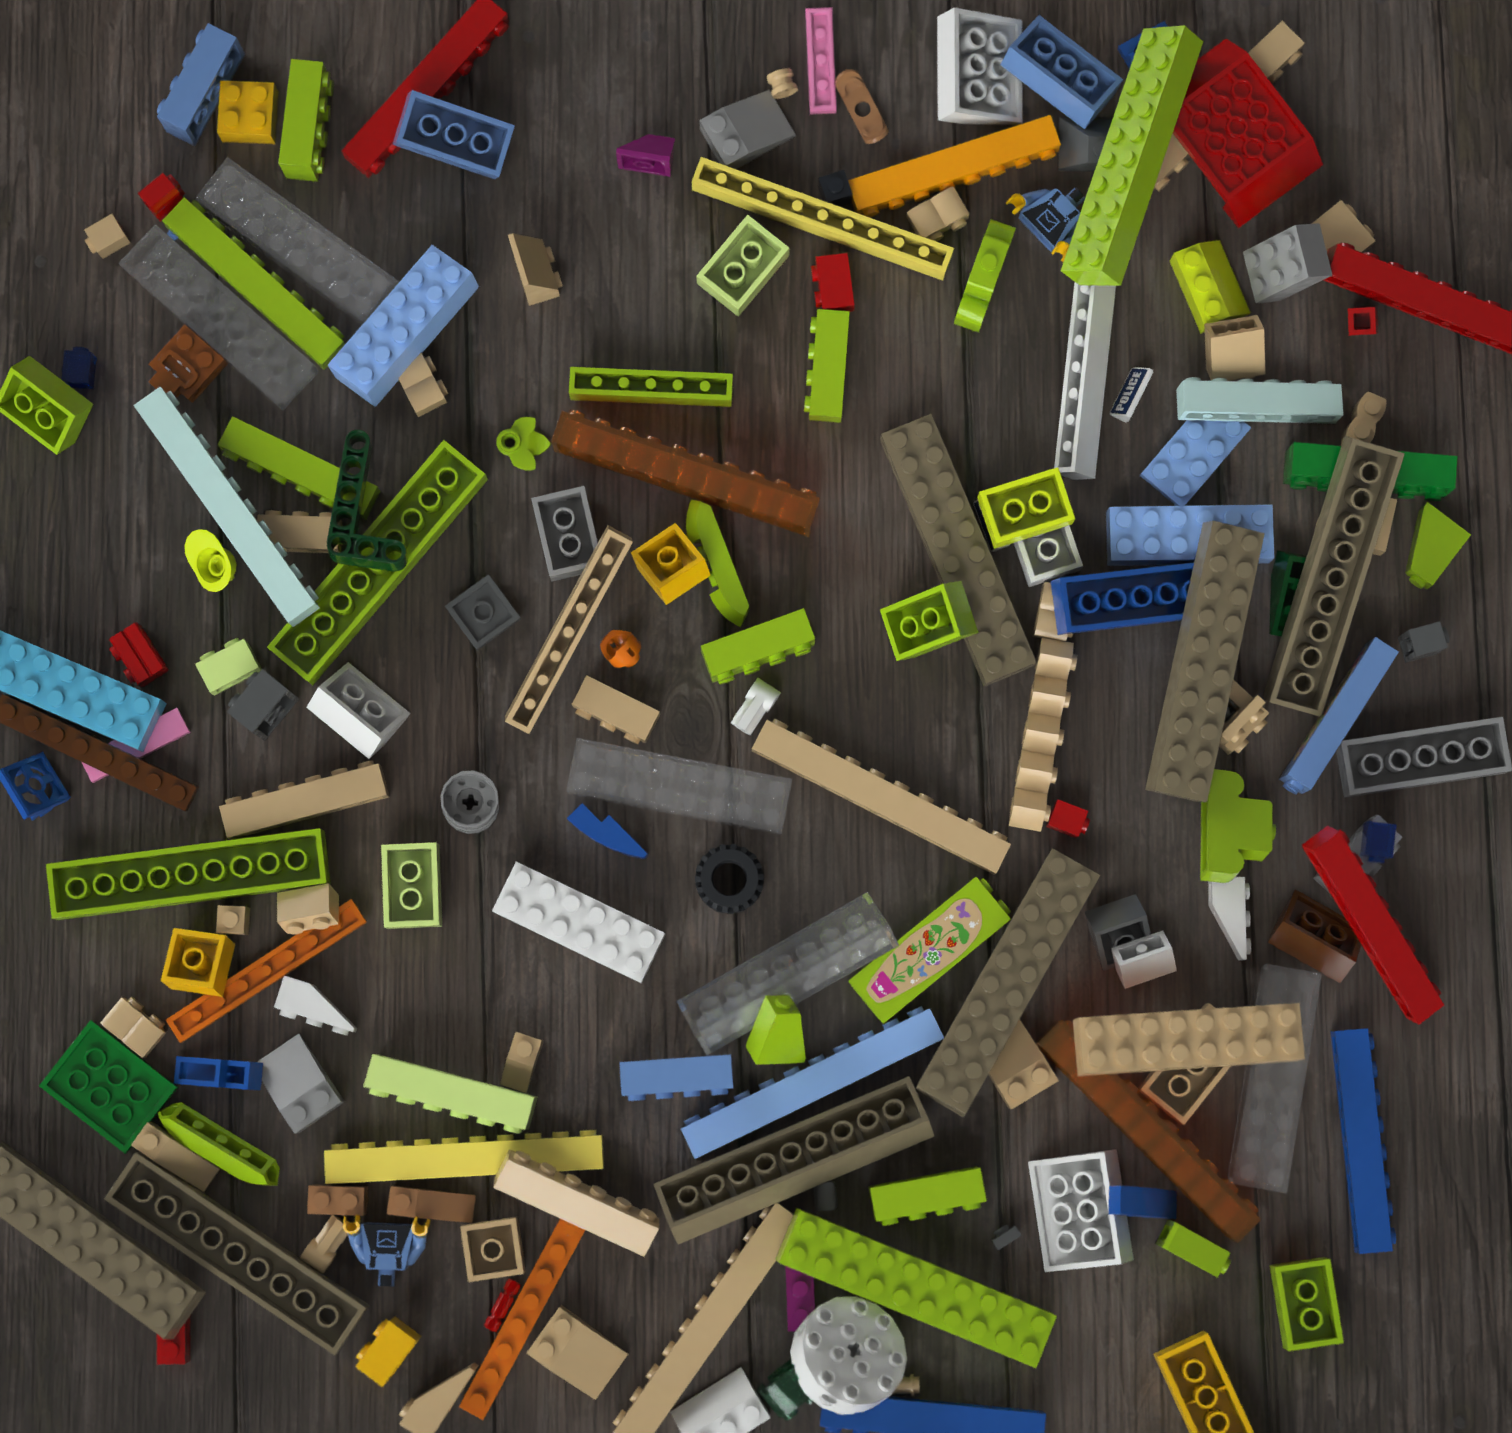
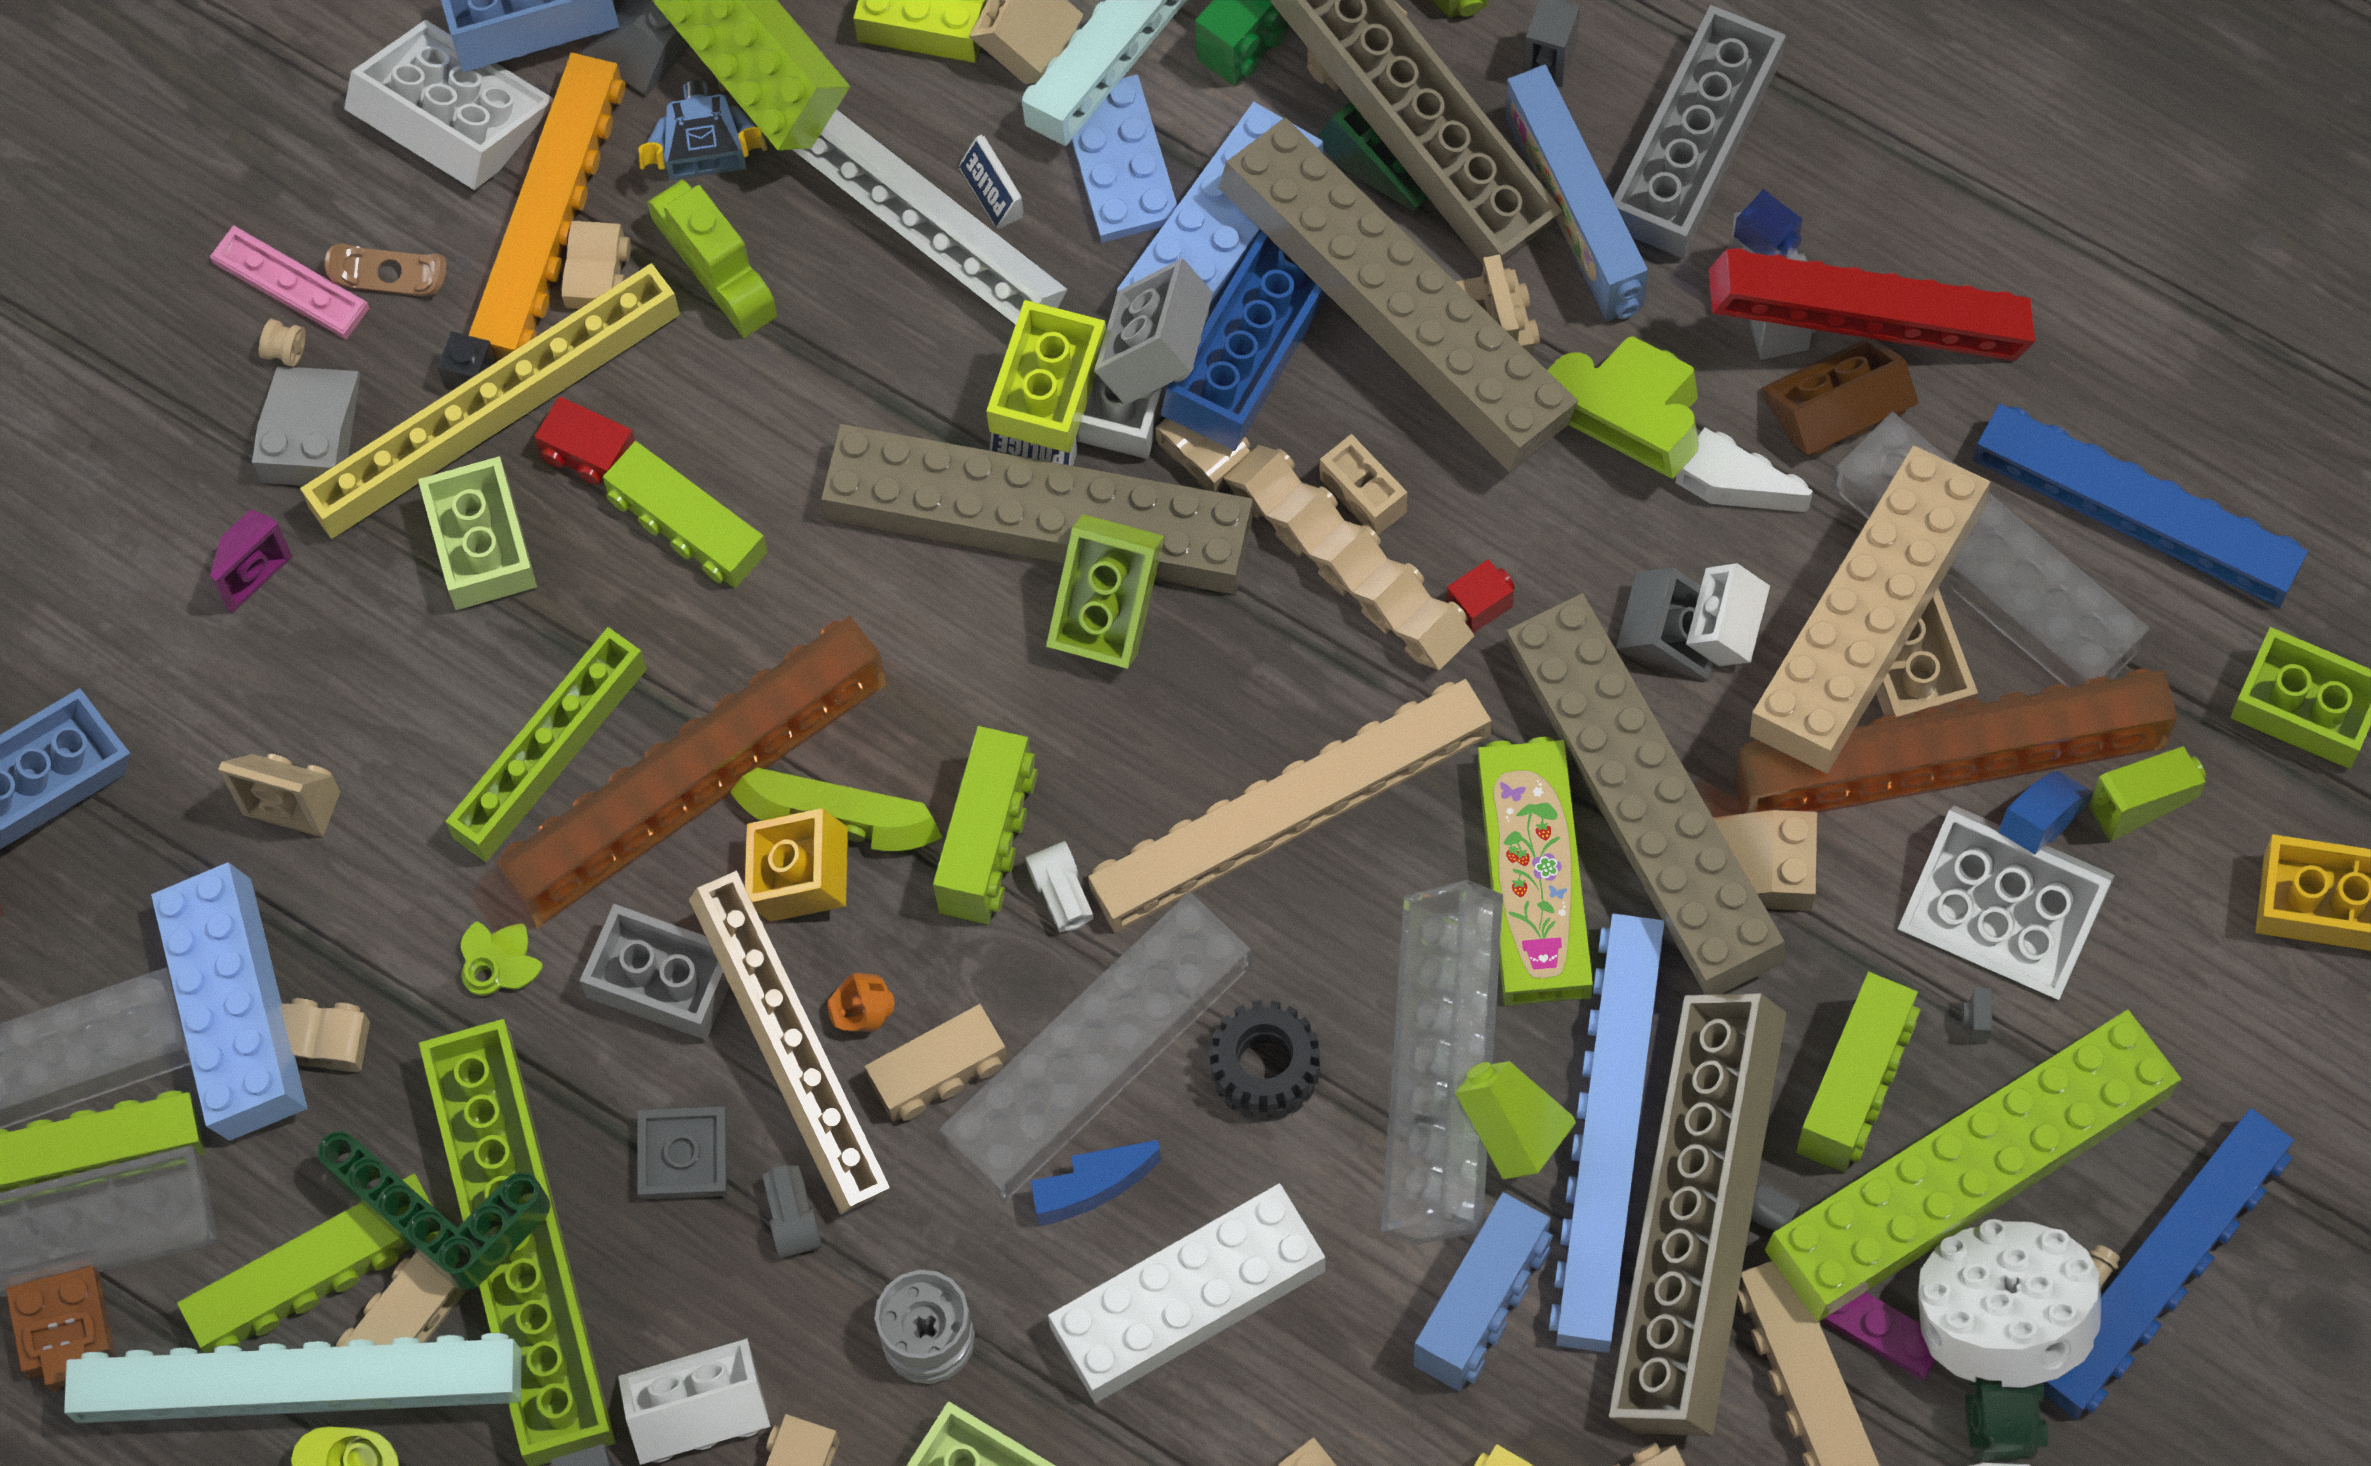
camera: 50 degrees left, 15 degrees down
(483, 695) = (793, 1221): none -> dark grey piece
(1087, 715) = (1363, 485): none -> tan brick
(1088, 548) = (1154, 332): none -> light grey brick

